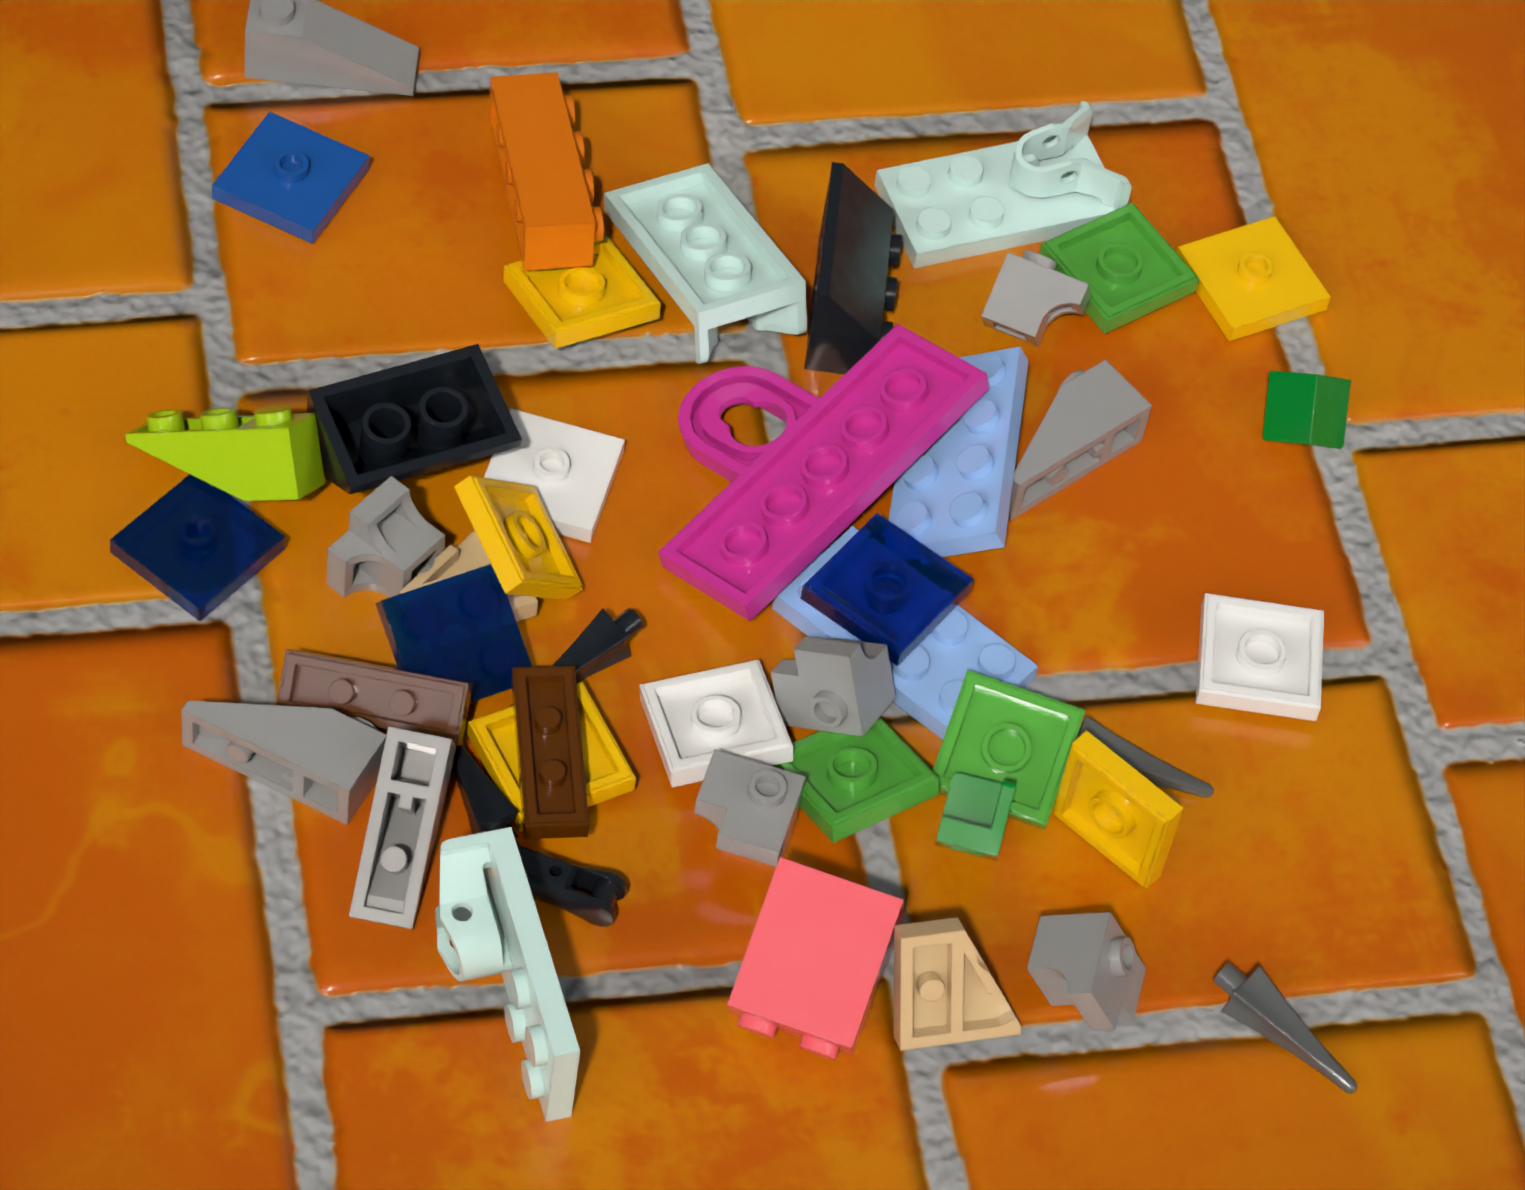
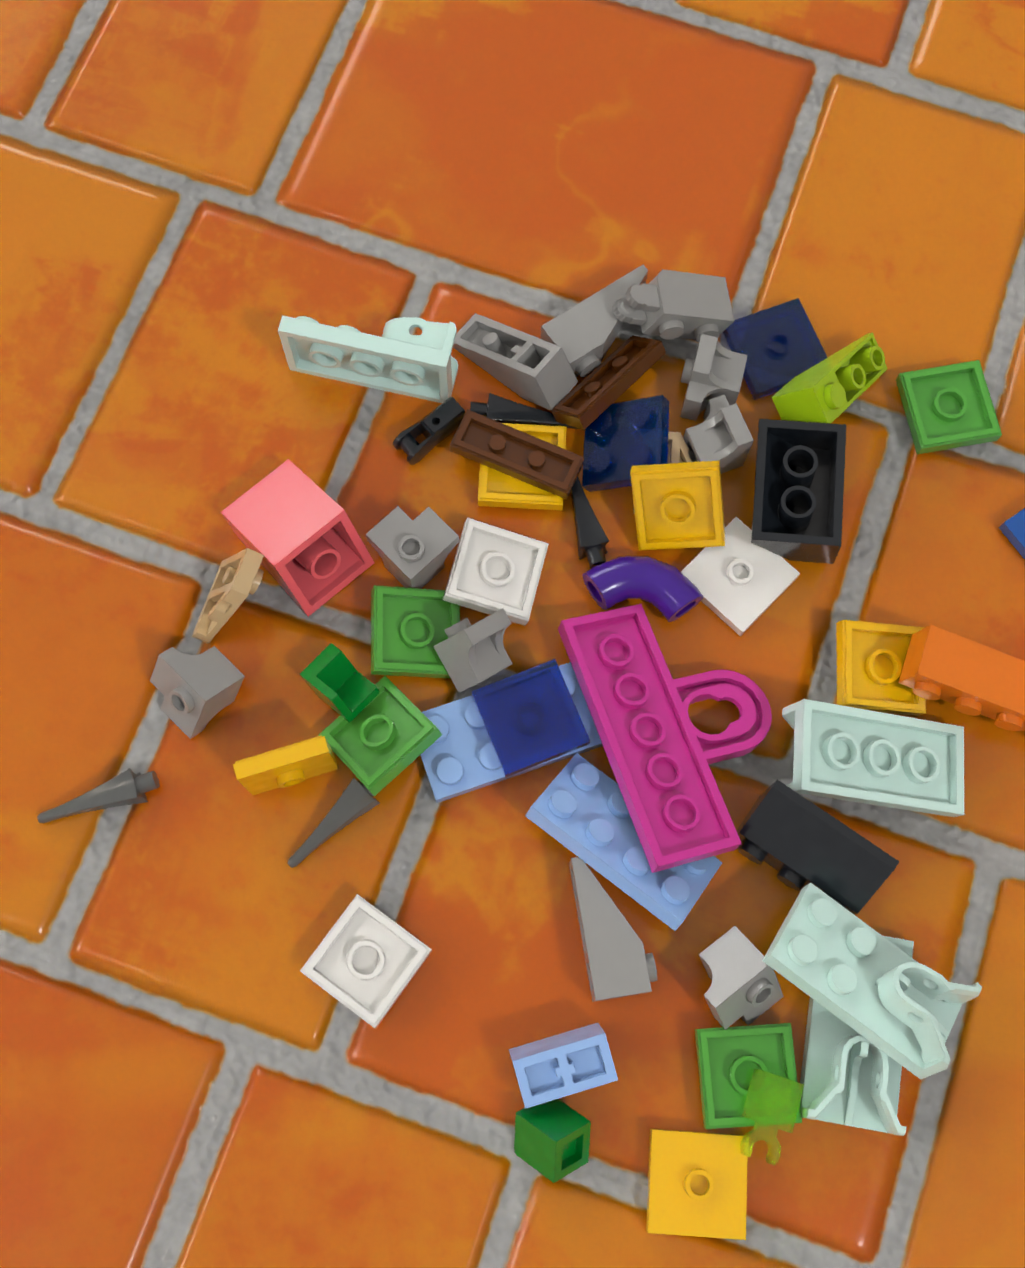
camera: 125 degrees right, 20 degrees up
(181, 331) = (948, 407): none -> bright green plate
(220, 647) = (678, 305): none -> light grey hinge
(303, 589) = (710, 375): none -> light grey brick
(626, 560) = (642, 579): none -> dark purple cylinder
(961, 171) = (868, 982): none -> light aqua plate
(1142, 227) = (773, 1106): none -> clear neon green plate
(1229, 426) = (563, 1064): none -> light blue hinge

